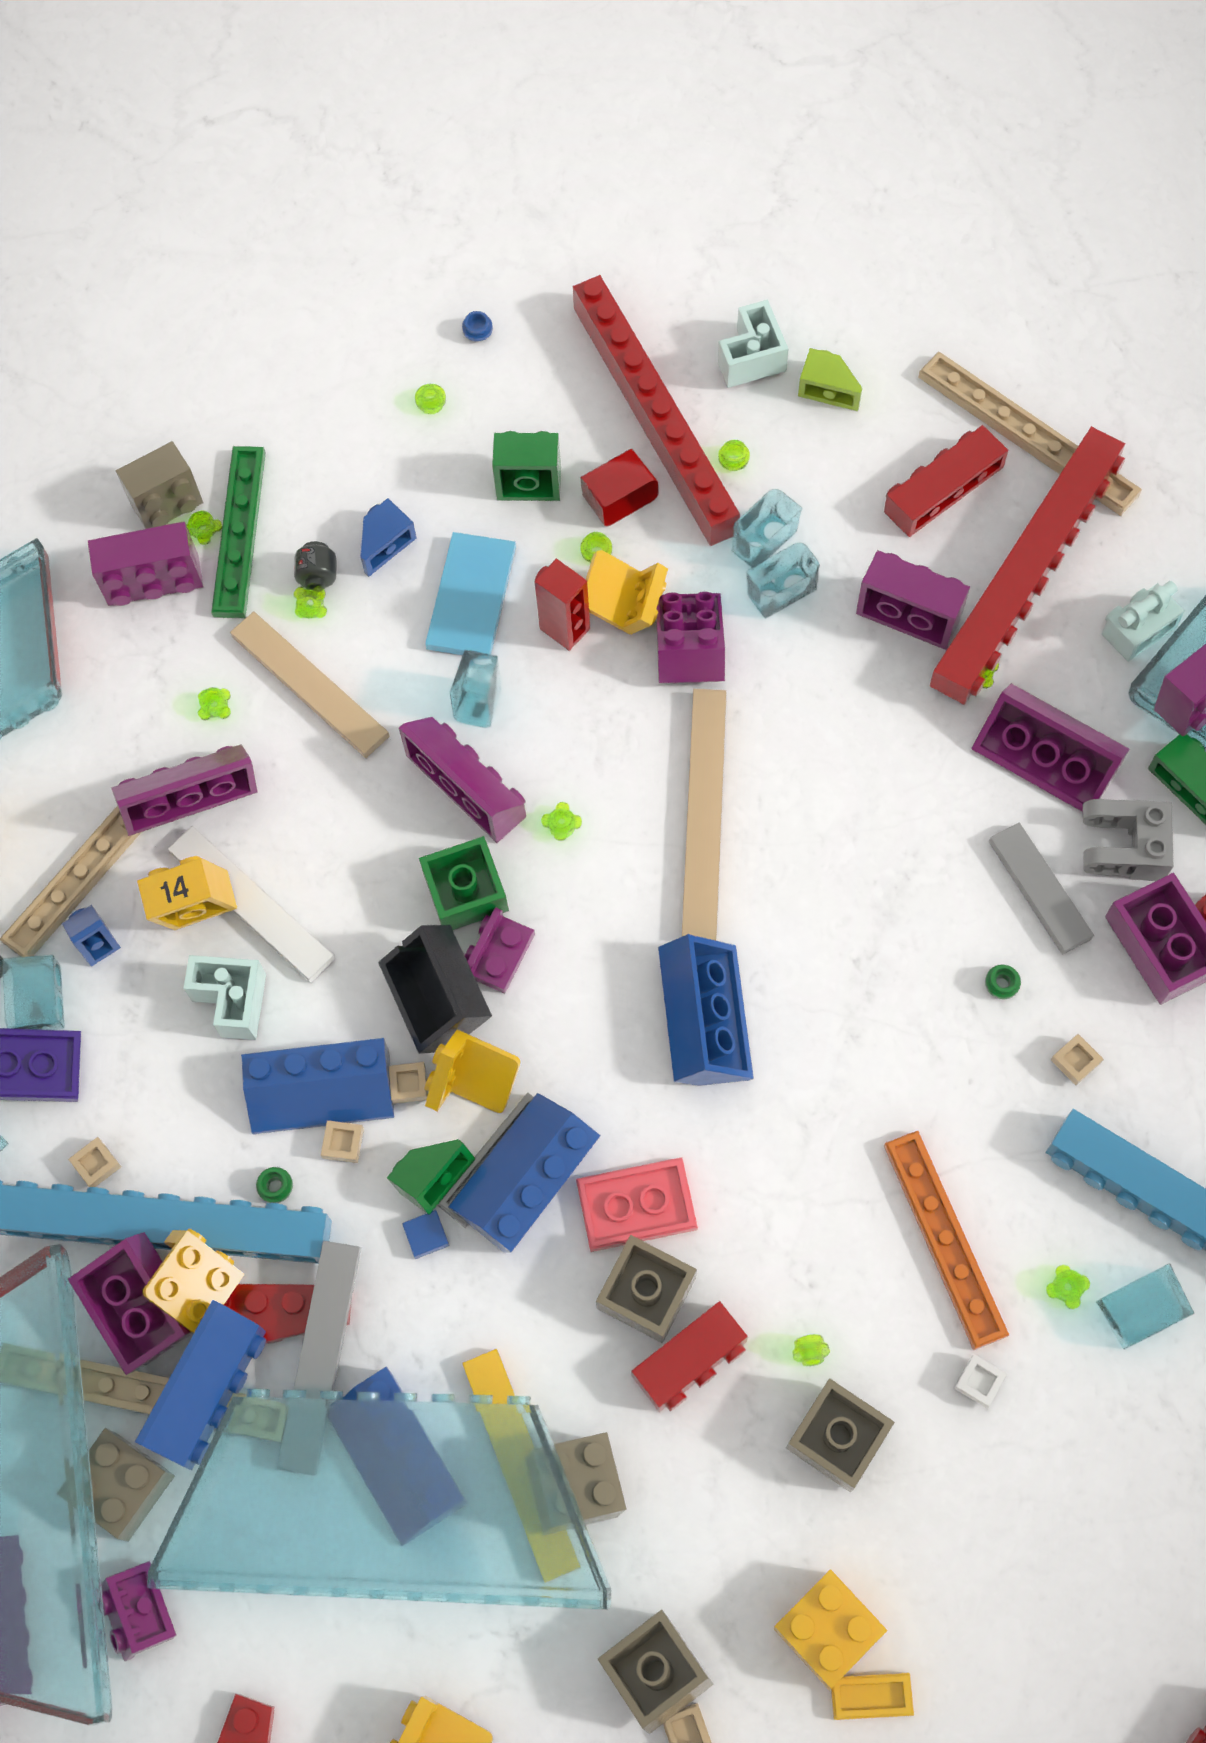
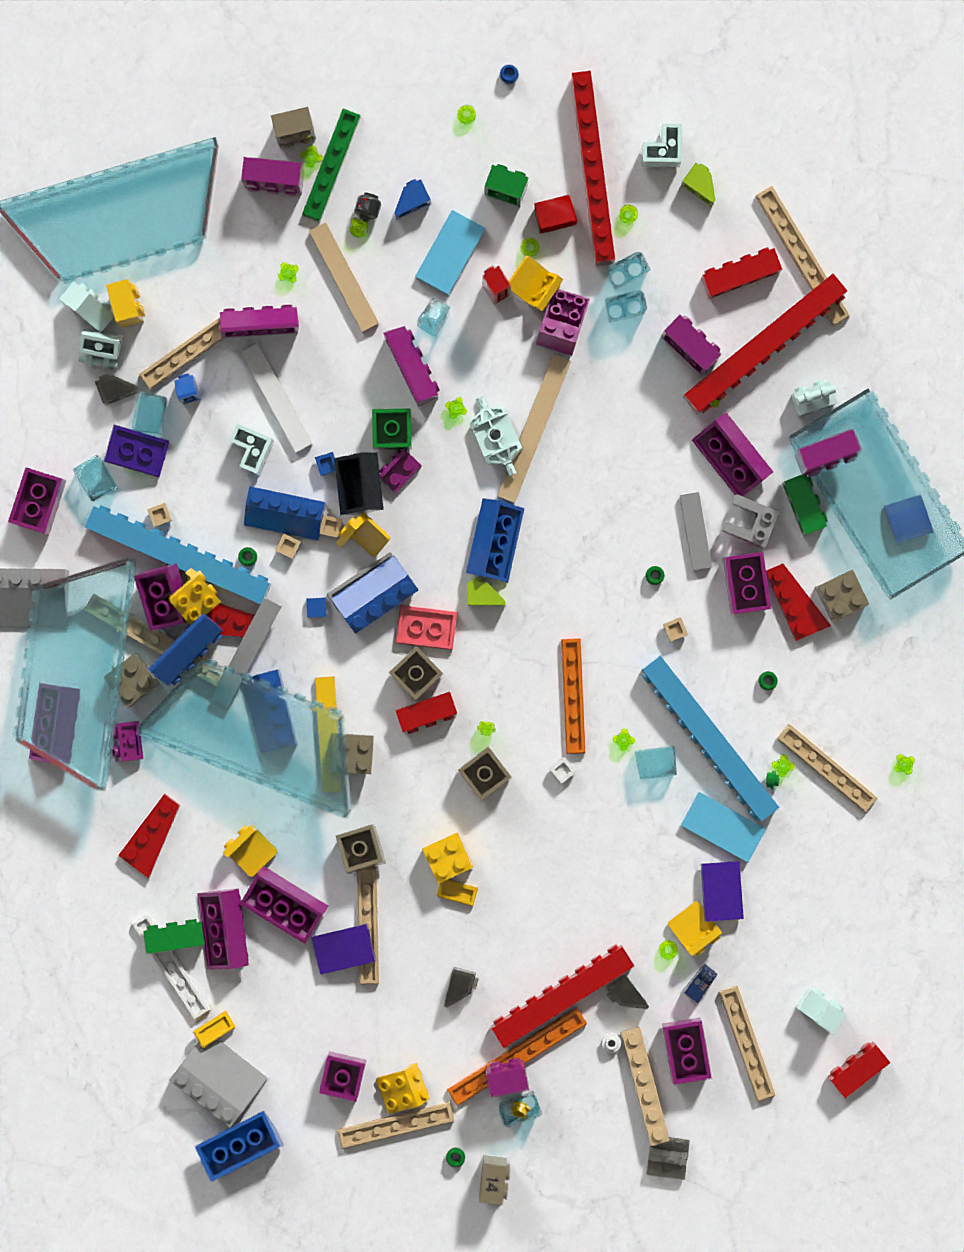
camera: 15 degrees right, 20 degrees up
(186, 893) = (244, 386): yellow brick -> none
(367, 980) = (325, 463): none -> blue plate
(430, 1172) = (327, 578): green slope -> none
(654, 864) = (506, 447): none -> light aqua plate
(718, 1110) = (482, 594): none -> lime slope

